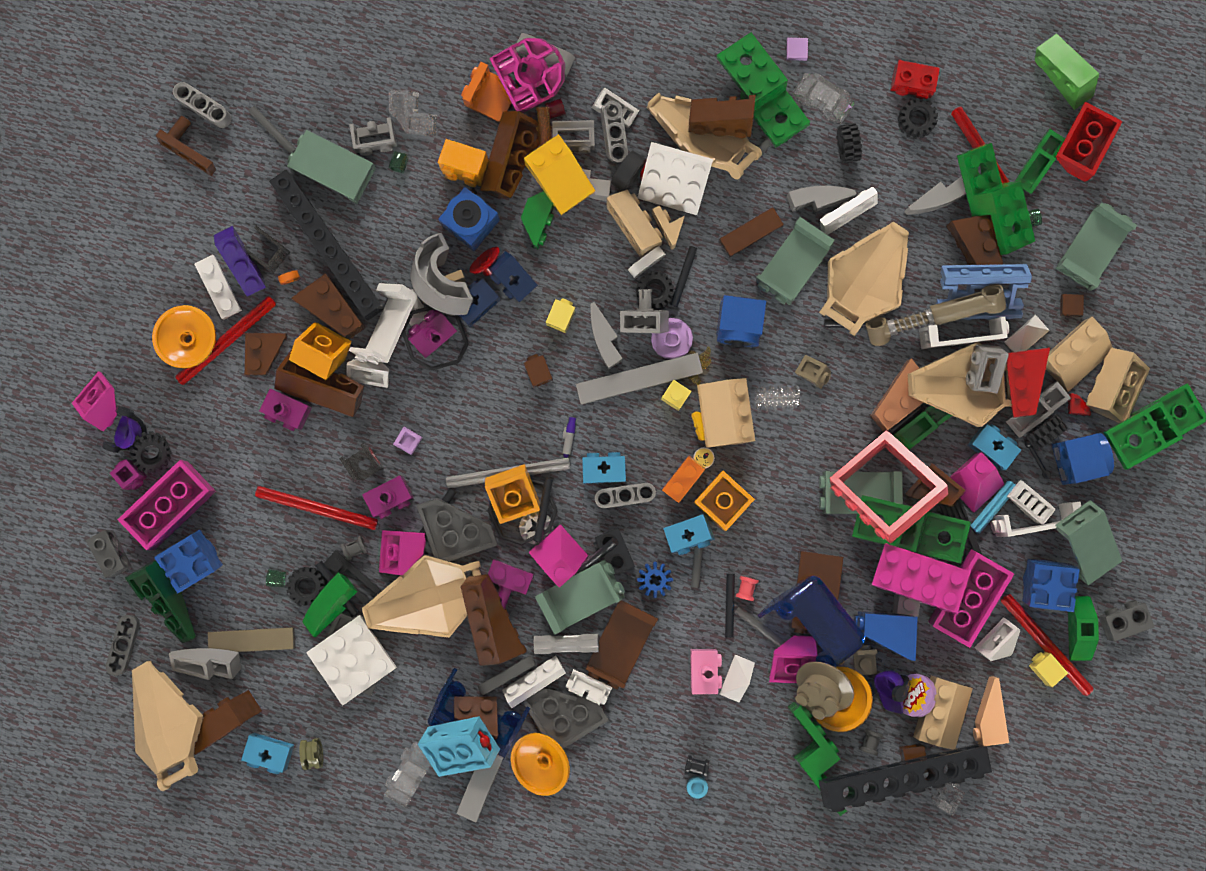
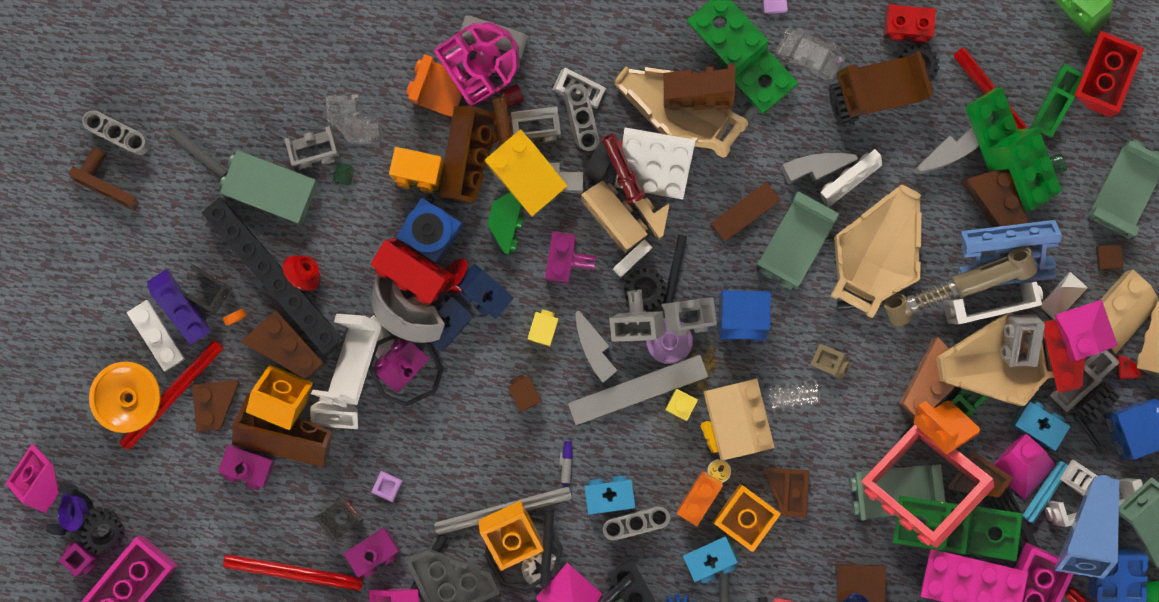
camera: 10 degrees left, 0 degrees up
(352, 243) = (302, 272): none -> red piece
(447, 249) = (411, 270): none -> red slope
(585, 254) = (563, 258): none -> magenta brick
(648, 187) = (626, 177): none -> dark red pin
(706, 316) = (705, 312): none -> light grey window
(765, 481) = (789, 489): none -> reddish brown wing
(887, 129) = (885, 85): none -> reddish brown panel
(909, 435) = (945, 425): none -> orange bracket
(1033, 545) = (1093, 537): none -> medium blue slope
(1044, 362) = (1086, 330): none -> dark pink slope

